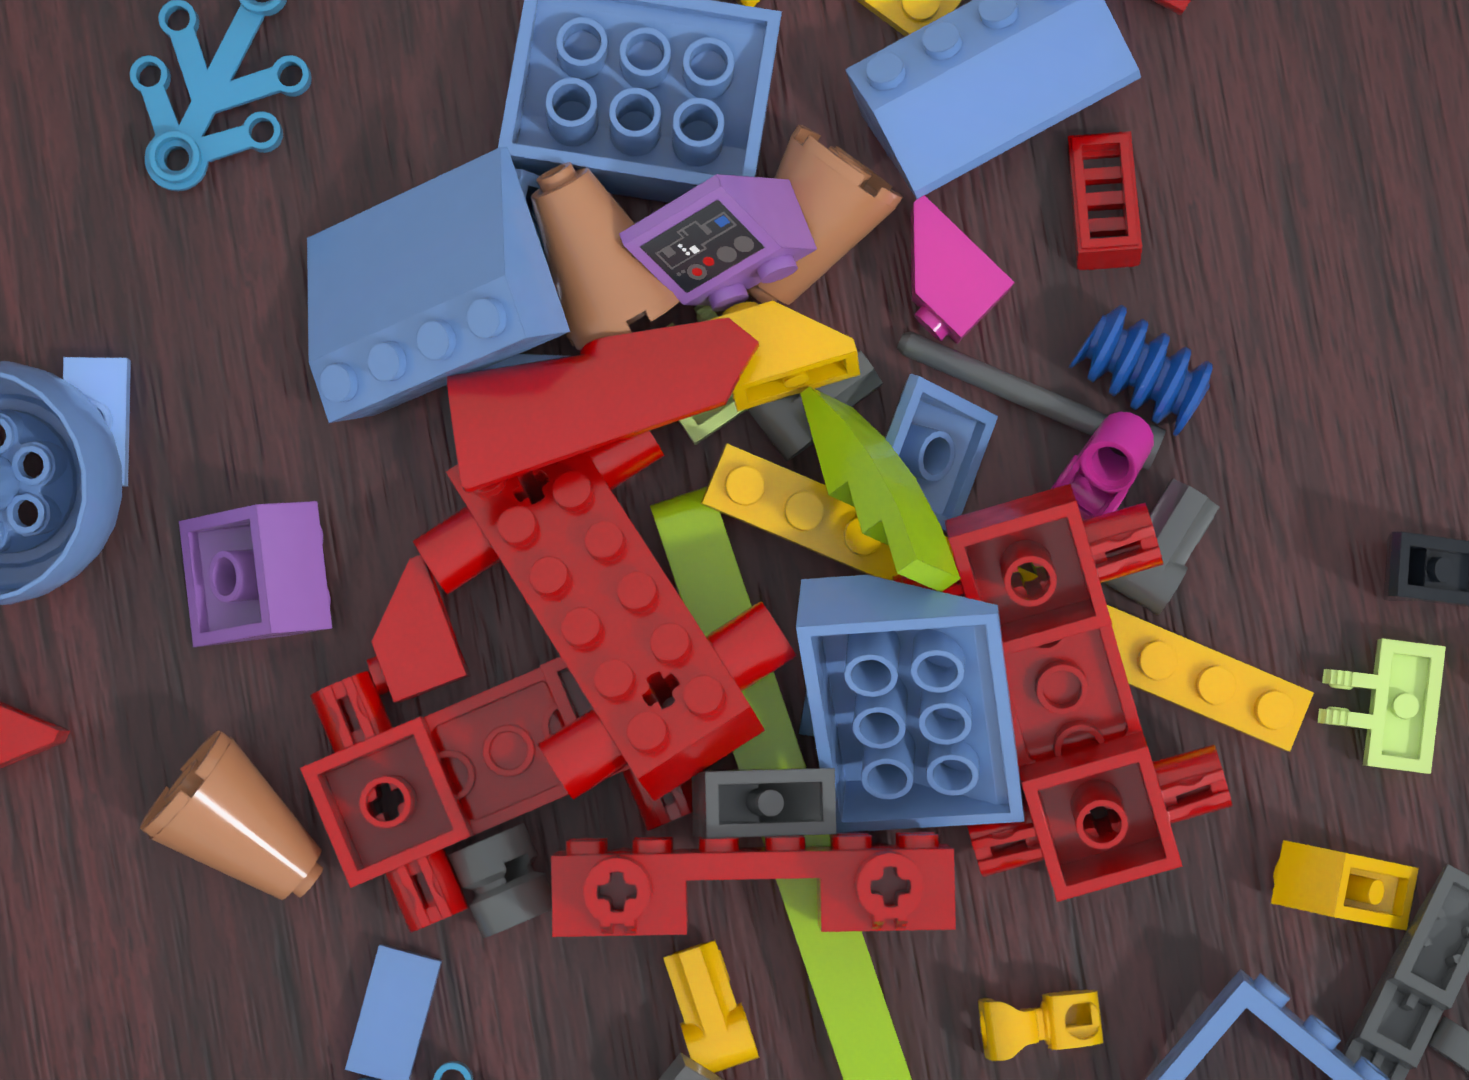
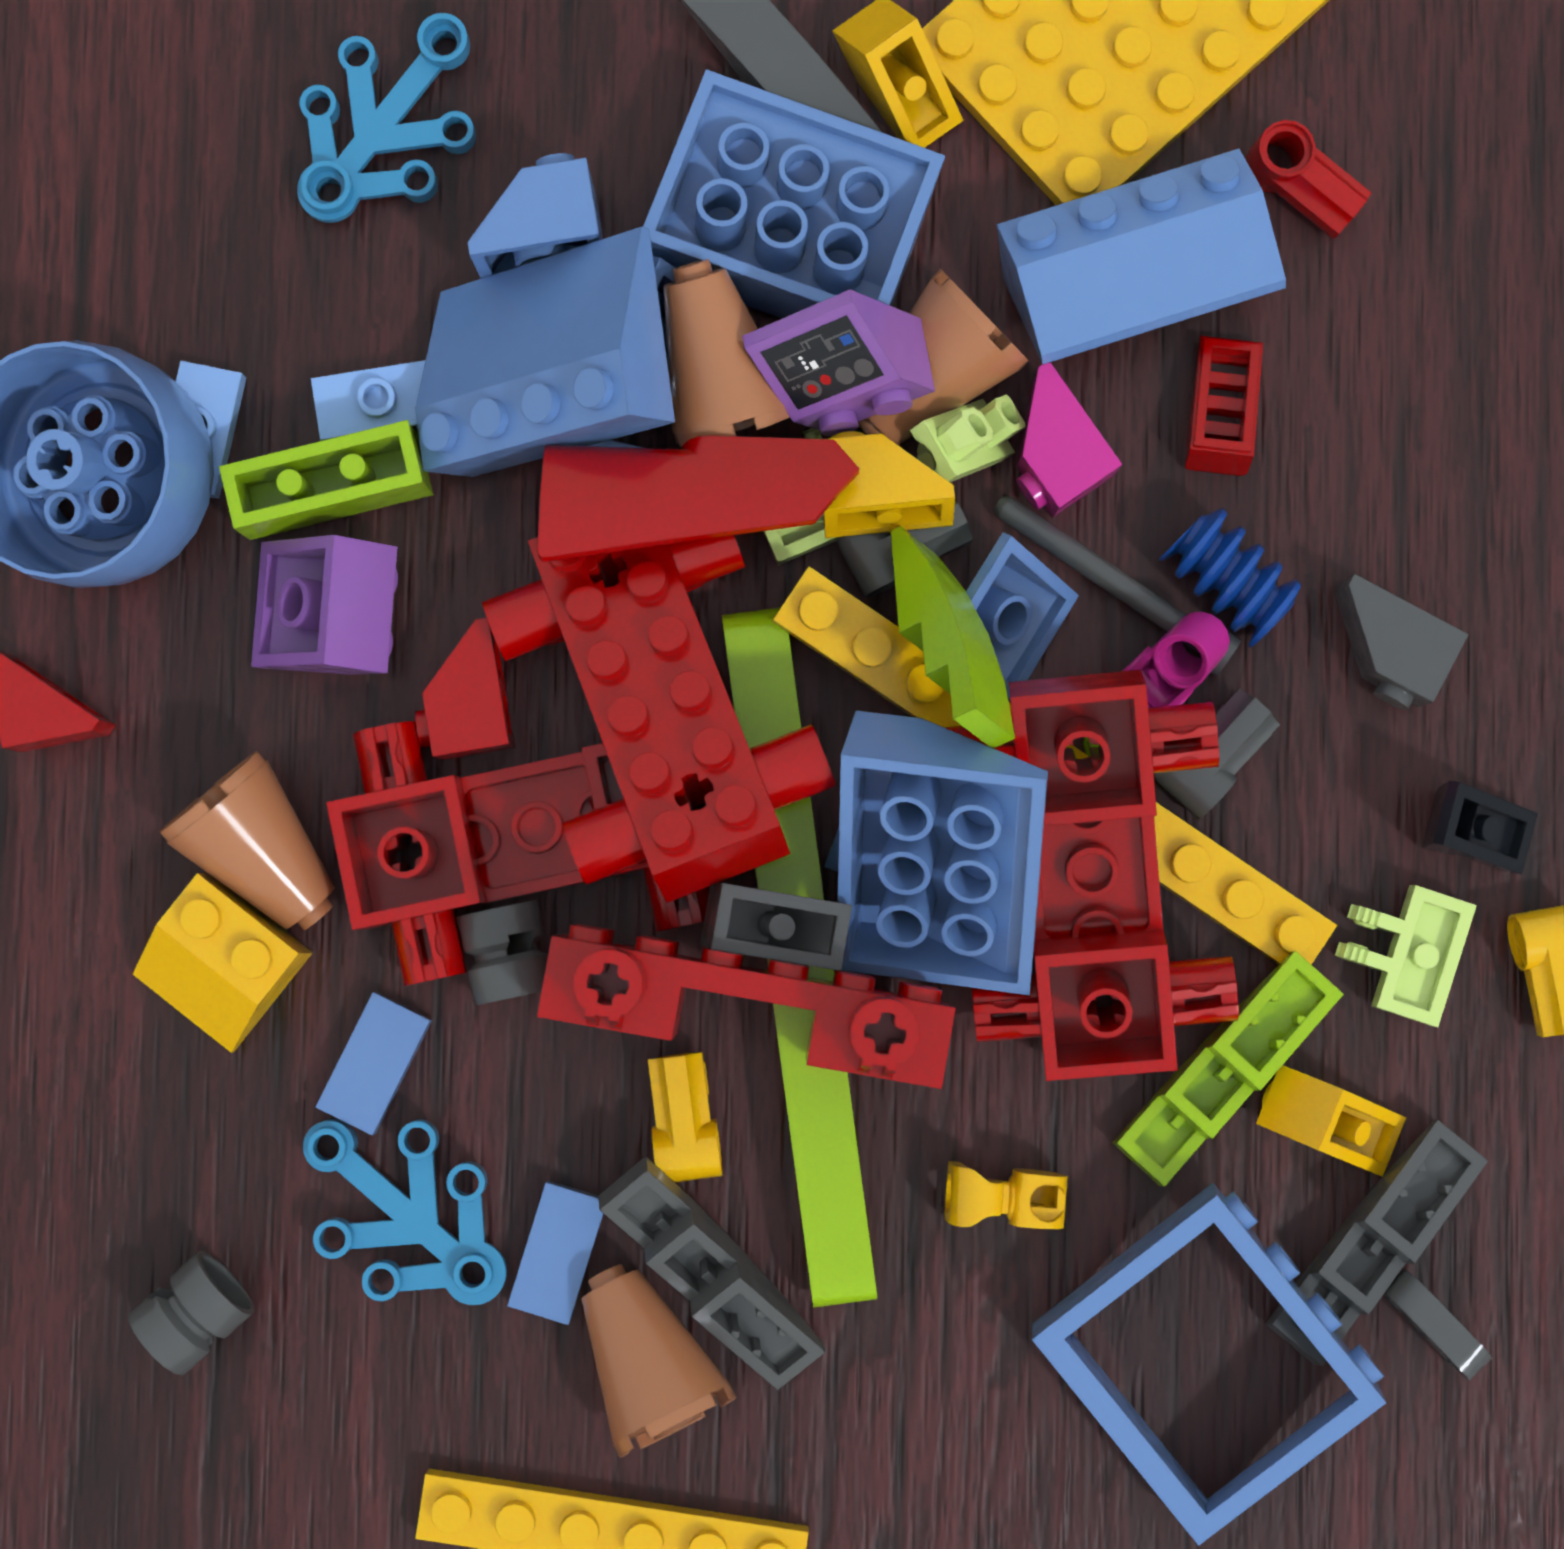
camera: 15 degrees right, 0 degrees up
(221, 944) = (219, 960): none -> yellow slope
(234, 450) = (325, 480): none -> lime brick
(258, 361) = (366, 398): none -> light blue plate
(396, 151) = (538, 216): none -> medium blue slope
(858, 284) = (968, 437): none -> yellowish green hips
(1233, 854) = (1228, 1068): none -> lime slope
(1319, 404) = (1397, 643): none -> dark grey slope

